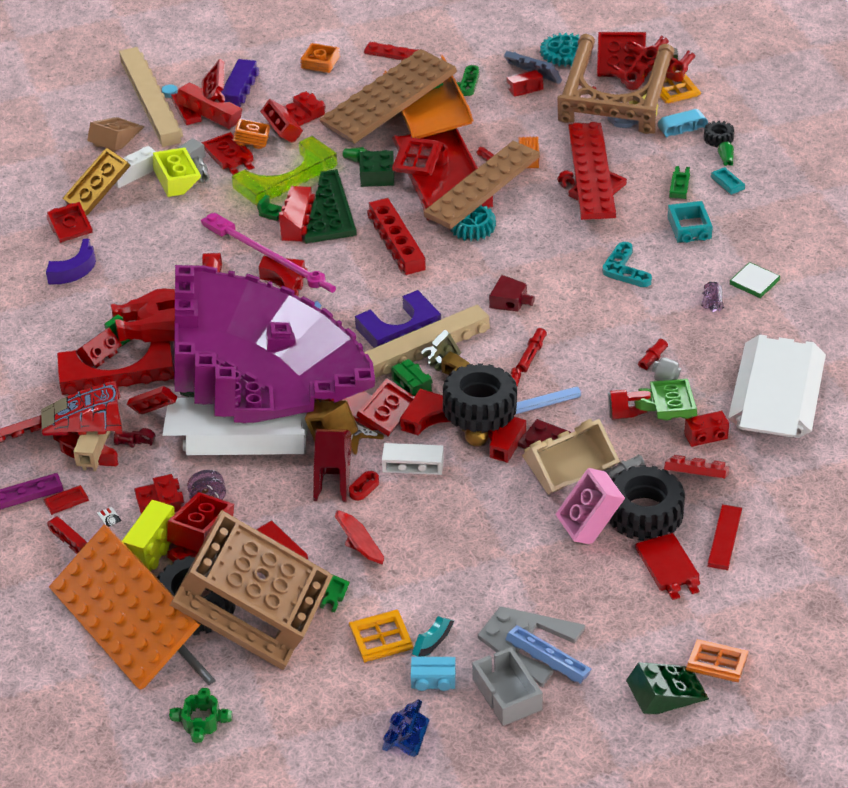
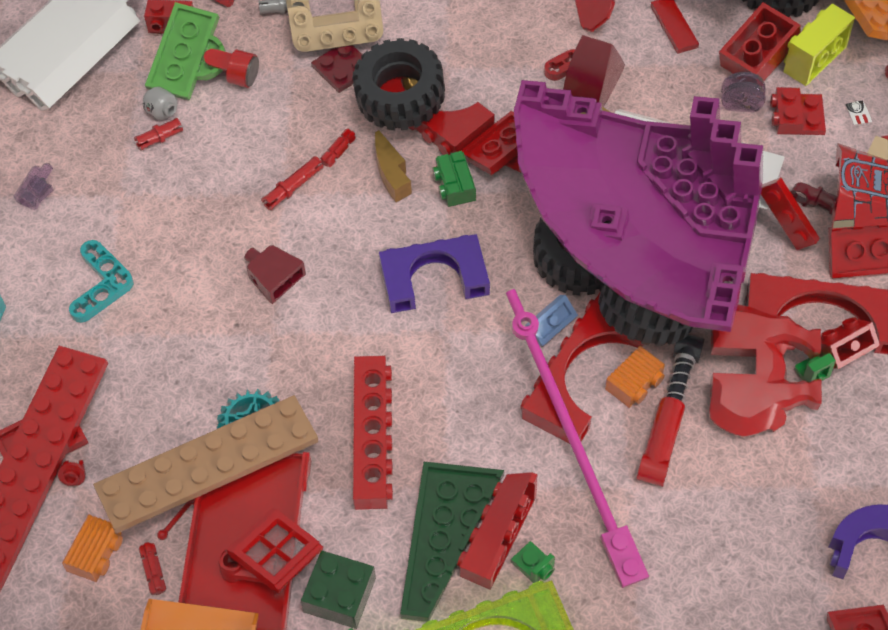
camera: 160 degrees left, 15 degrees up
(410, 346) = (423, 226): tan brick -> none
(412, 458) = (496, 72): white brick -> none
(441, 346) = (399, 192): olive plate -> none
(548, 399) = (315, 113): light blue axle -> none

